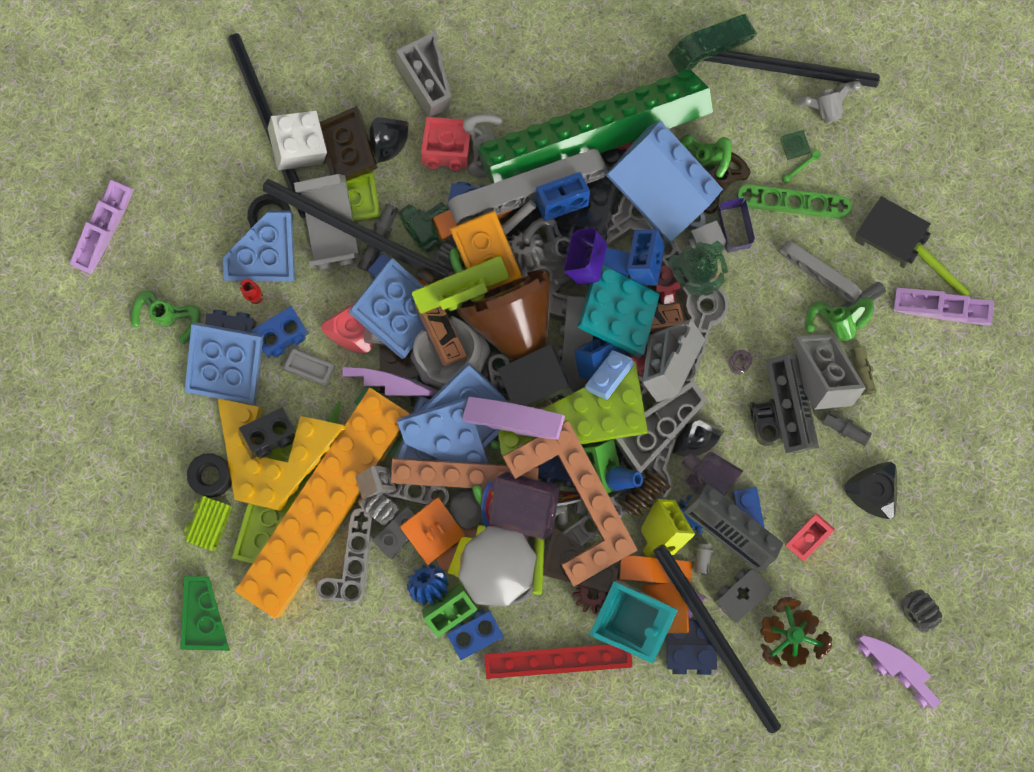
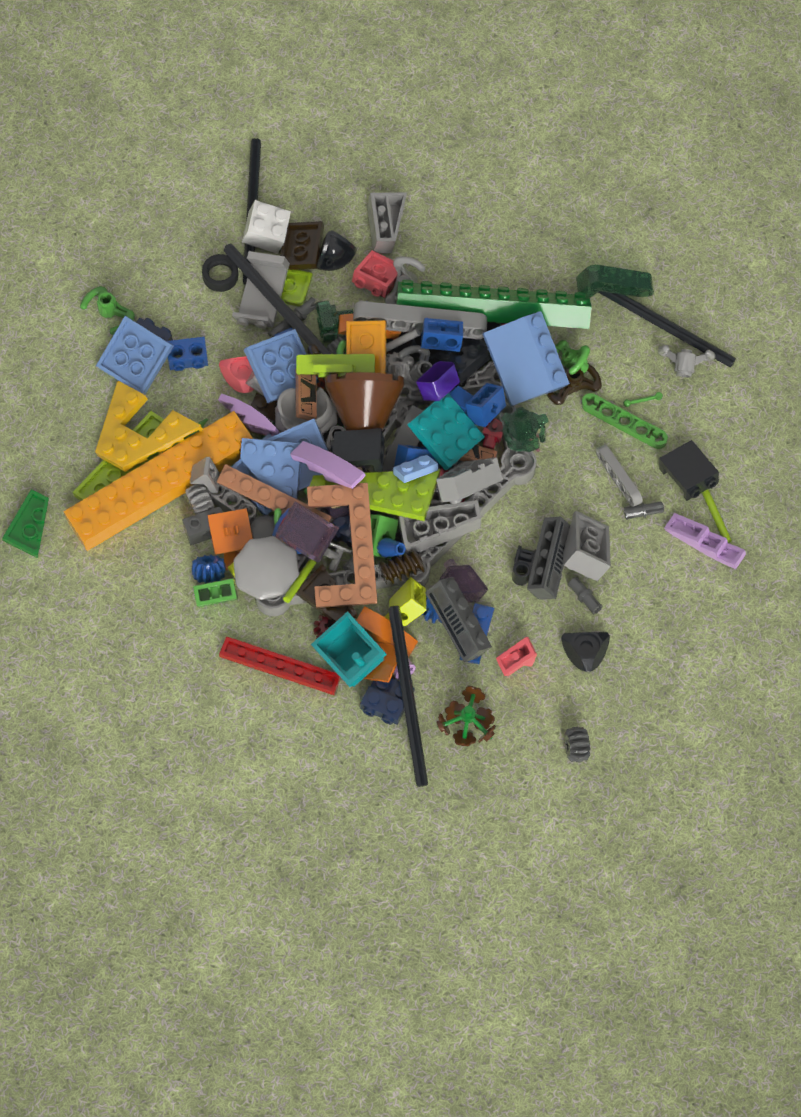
camera: 20 degrees right, 15 degrees down
(102, 226) = (90, 232): lavender slope -> none
(198, 465) = (82, 418): black tyre -> none
(207, 523) = (67, 461): lime brick -> none
(251, 291) = (180, 315): red pin -> none
(263, 428) = (142, 409): black brick -> none
(264, 251) = (203, 292): medium blue plate -> none
(309, 367) = (196, 387): light grey tile -> none
(352, 555) = (163, 528): light grey beam -> none
(478, 640) = (226, 626): blue brick -> none
(697, 438) = (466, 551): black hat -> none
(703, 558) = (428, 639): light grey pin -> none
(705, 232) = (550, 411): light grey brick -> none
(744, 356) = (521, 509): bush -> none
(747, 221) = (570, 401): piece -> none
(756, 591) = (437, 685): dark grey brick -> none
(795, 144) = (645, 381): clear green plate -> none
(842, 318) = (617, 513): bright green piece -> none
(863, 369) = (618, 560): olive pin -> none
(892, 661) = (538, 773): lavender slope -> none

